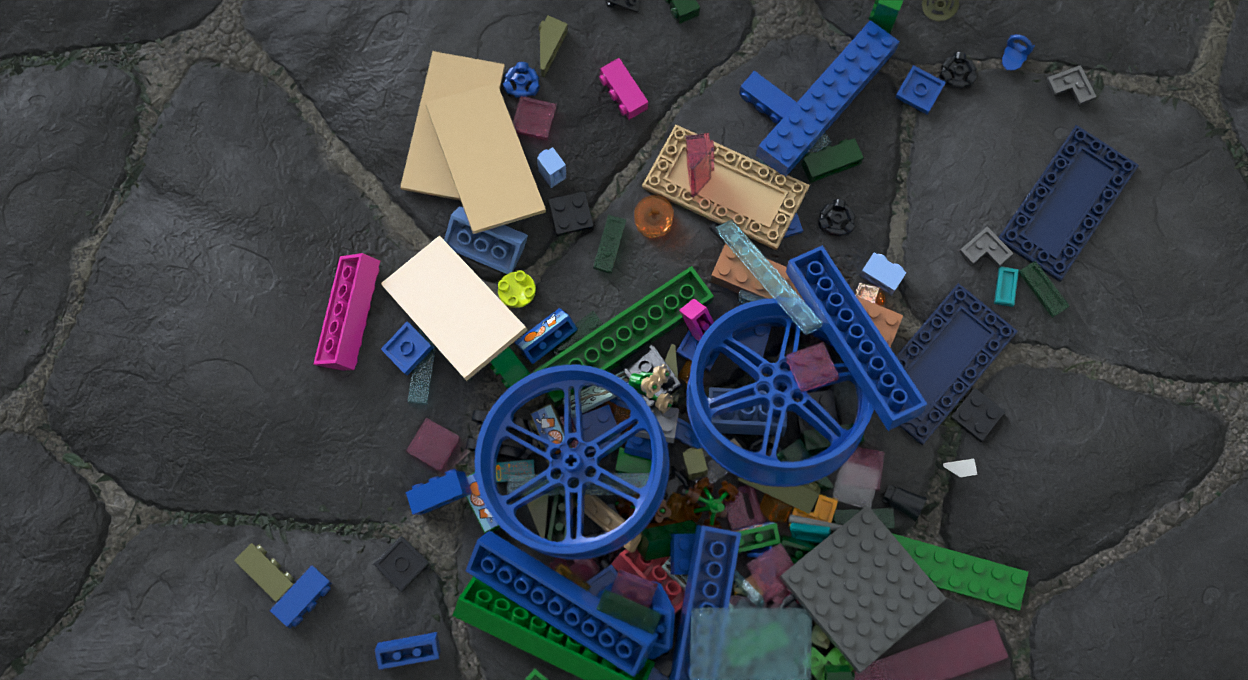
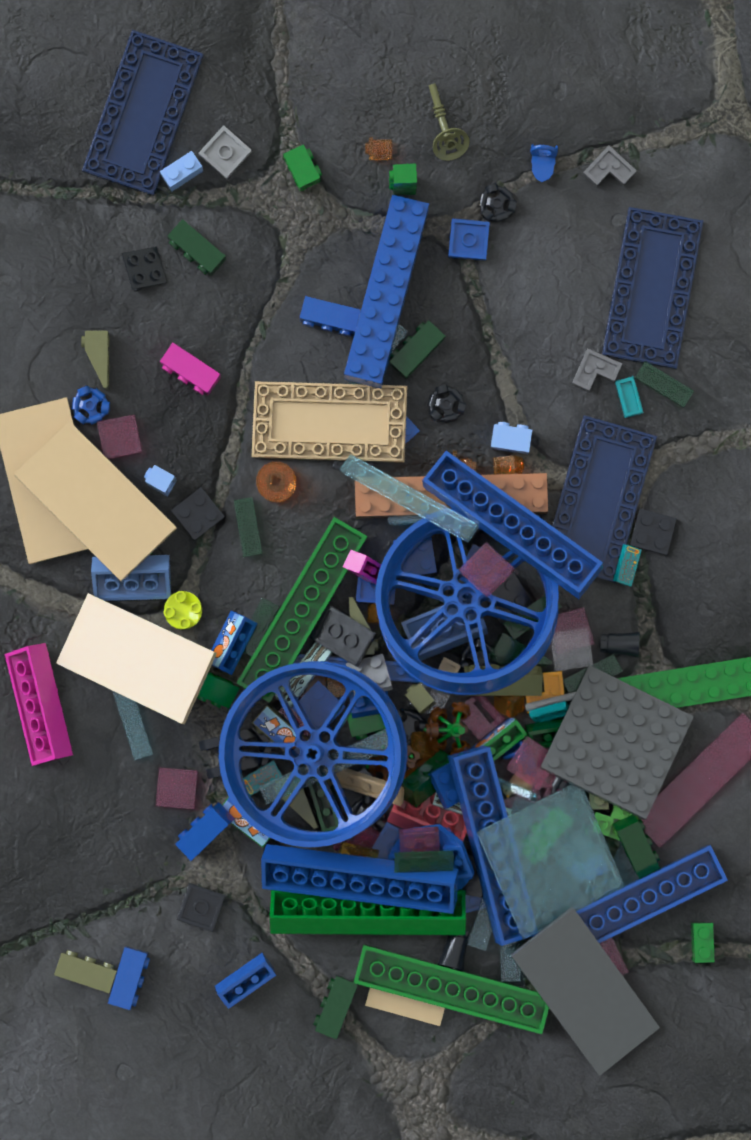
camera: 25 degrees left, 10 degrees up
(407, 348) = (110, 712): blue plate -> none
(651, 385) = (349, 650): tan plant -> none
(699, 161) = (297, 416): clear pink slope -> none
(941, 433) = (627, 565): none -> teal tile
(962, 468) = (659, 587): white sticker -> none

